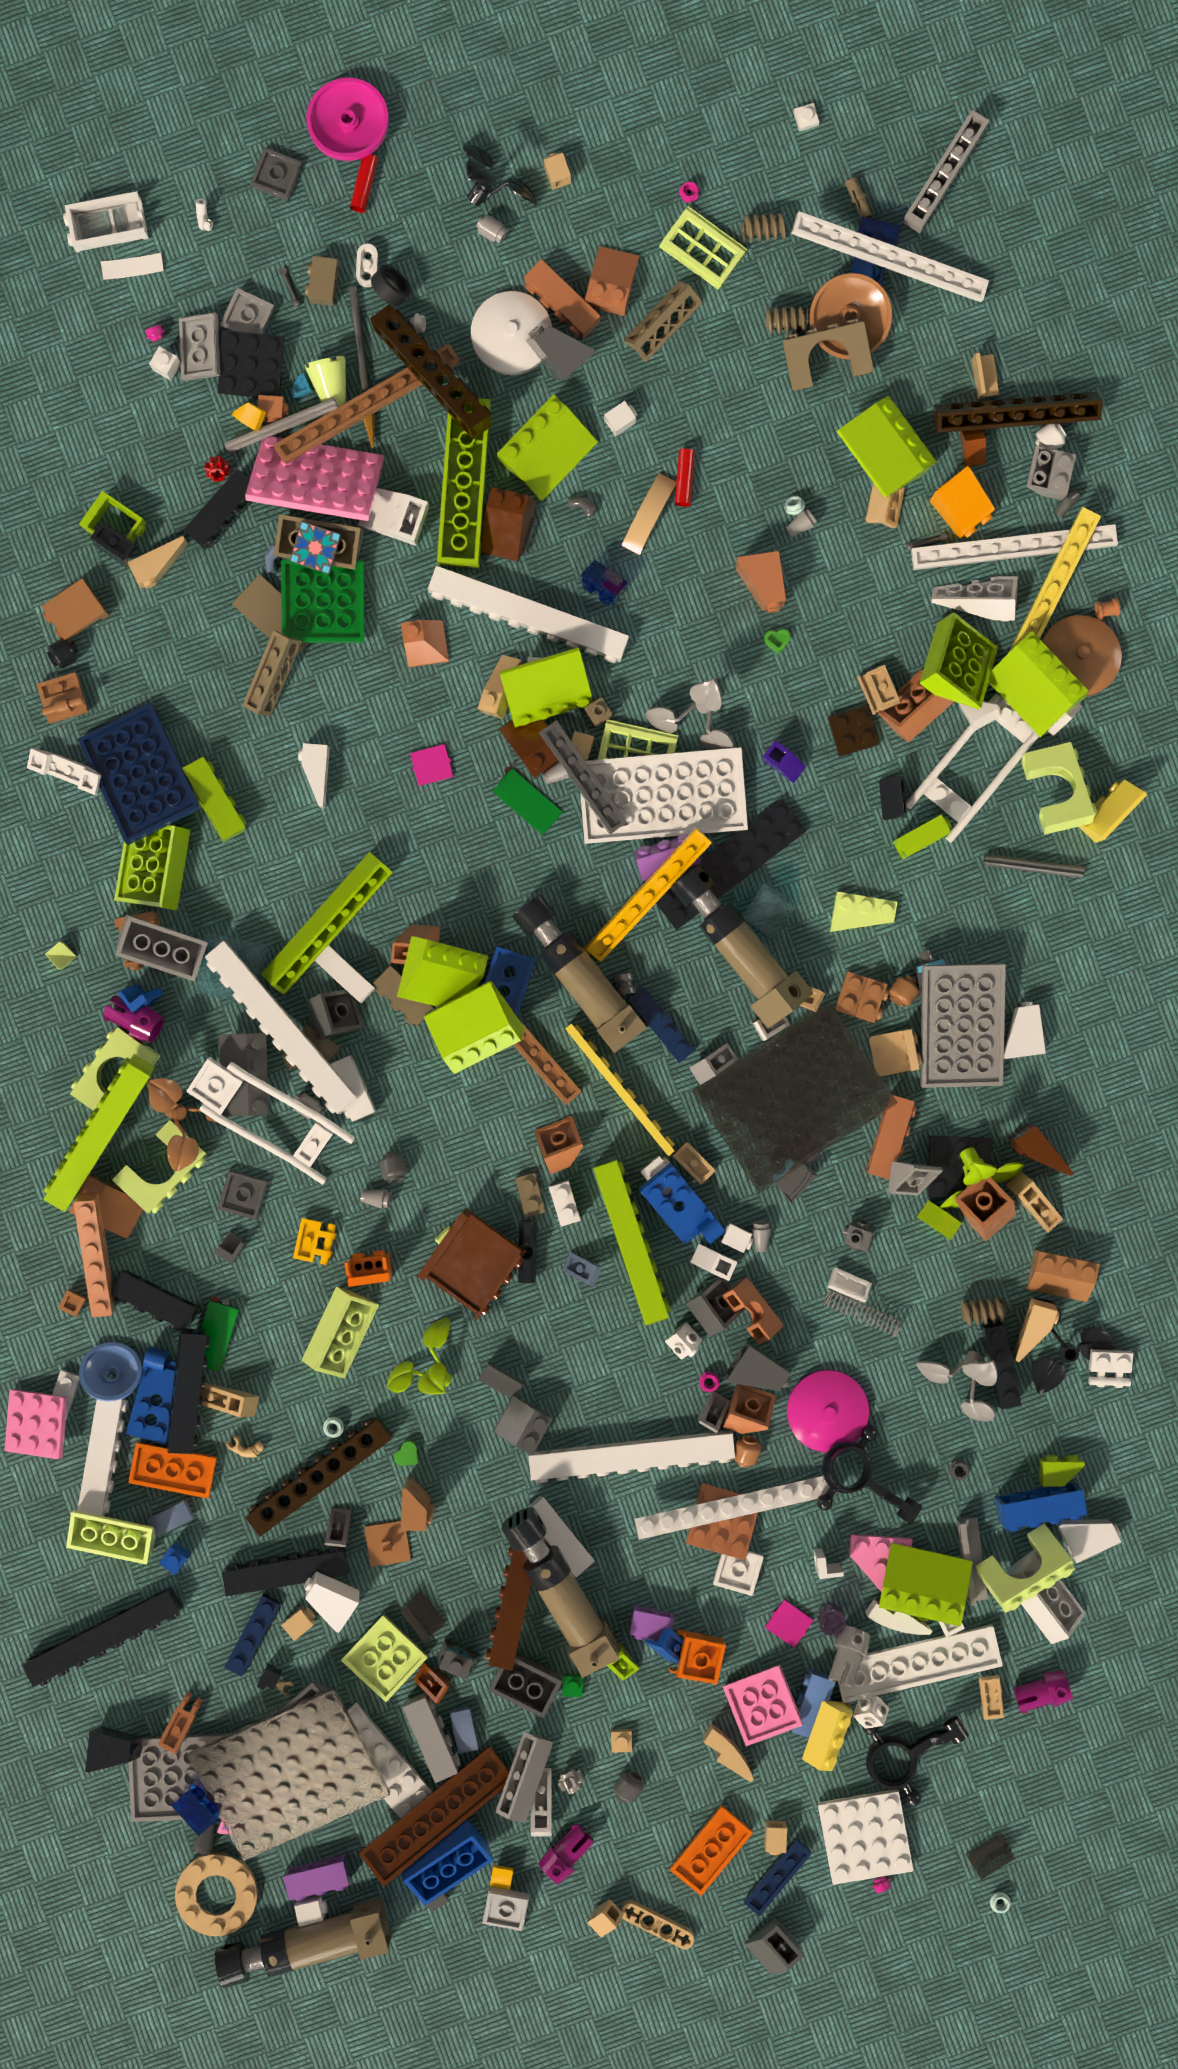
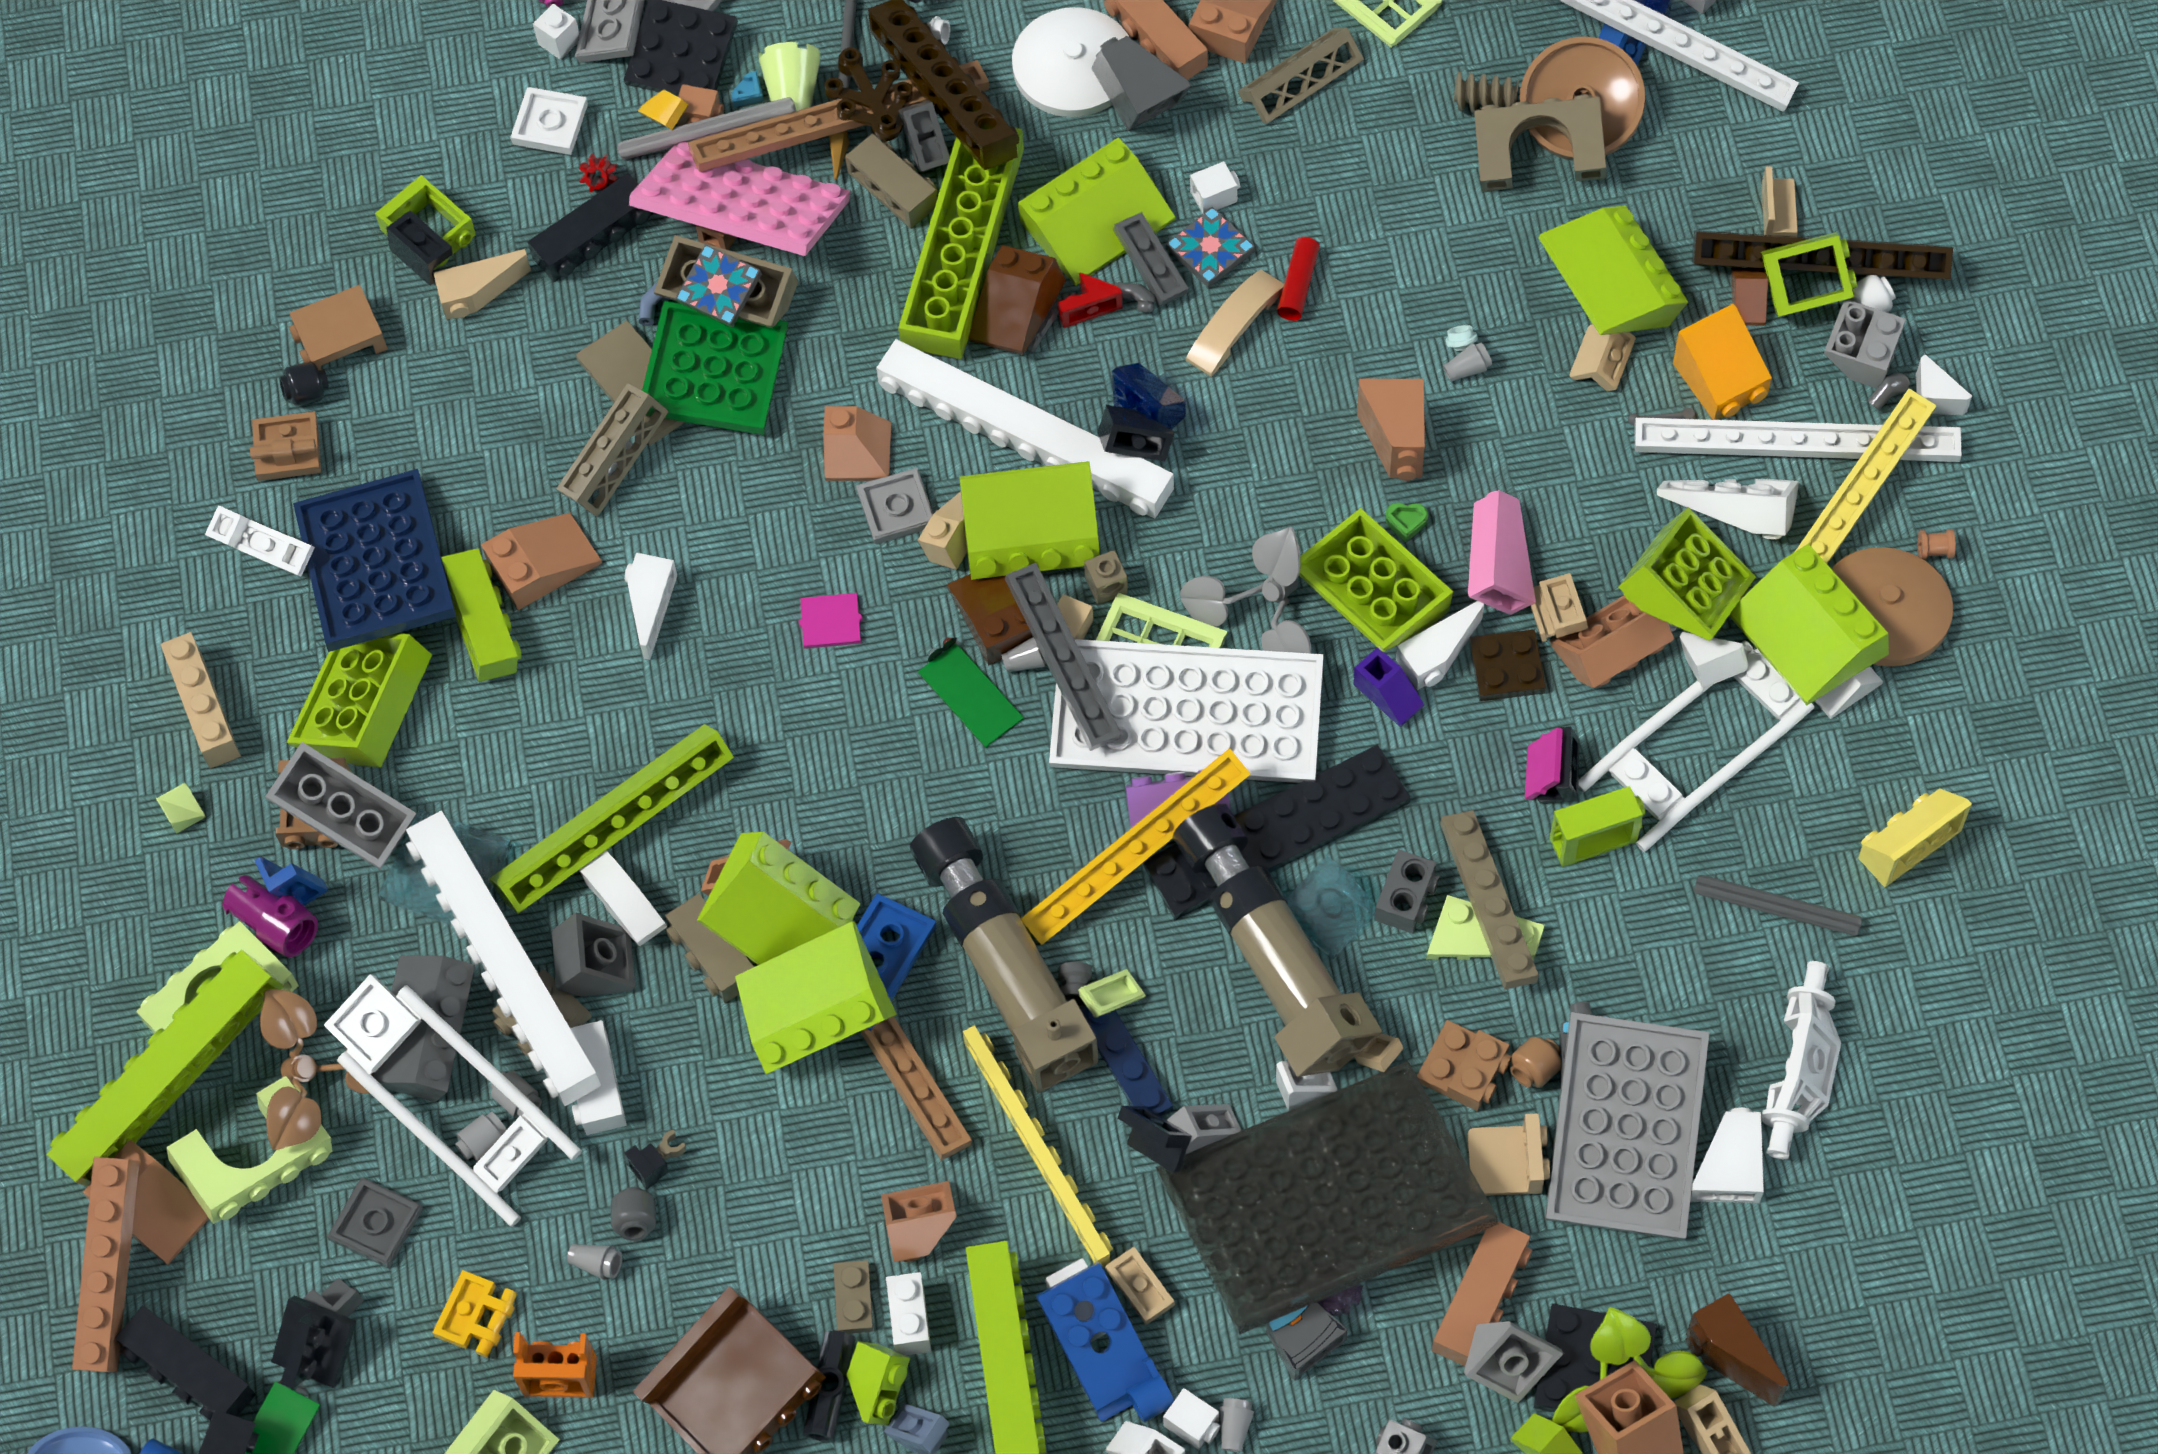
camera: 15 degrees right, 25 degrees down
(54, 883) = (200, 700): none -> tan brick
(72, 1303) = (46, 1351): medium nougat plate -> none
(175, 432) = (549, 120): none -> white plate
(225, 1277) = (312, 1343): none -> black bracket
(242, 751) = (539, 557): none -> nougat slope
(293, 1135) = (480, 1136): none -> light grey brick
(384, 387) = (884, 123): none -> dark brown plant
(396, 1135) = (649, 1162): none -> black piece
(397, 516) = (851, 269): white slope -> none
(410, 444) = (892, 180): none -> dark tan brick
(426, 411) = (924, 135): none -> dark grey brick
(457, 679) = (895, 505): none -> light grey tile
(553, 1245) = (876, 1380): none -> lime slope
(559, 513) = (1096, 300): none -> red slope
(588, 478) = (1150, 259): none -> dark grey plate
(598, 613) = (1133, 434): none -> black slope
(624, 461) = (1210, 247): none -> tile
(648, 988) = (1111, 993): none -> yellowish green tile
(689, 1075) = (1155, 1137): none -> black panel
(765, 694) = (1375, 582): none -> lime slope
(807, 892) = (1401, 890): none -> dark grey brick
(808, 730) = (1431, 653): none -> white slope
(839, 659) = (1499, 555): none -> bright pink slope
(863, 892) = (1489, 900): none -> dark tan plate
(884, 799) = (1543, 764): none -> dark pink piece
(1005, 417) = (1775, 280): none -> lime window
(1061, 761) = (1841, 752): yellowish green arch -> none
(1066, 966) = (1810, 1065): none -> white plate
(1098, 499) = (1941, 389): none -> white slope

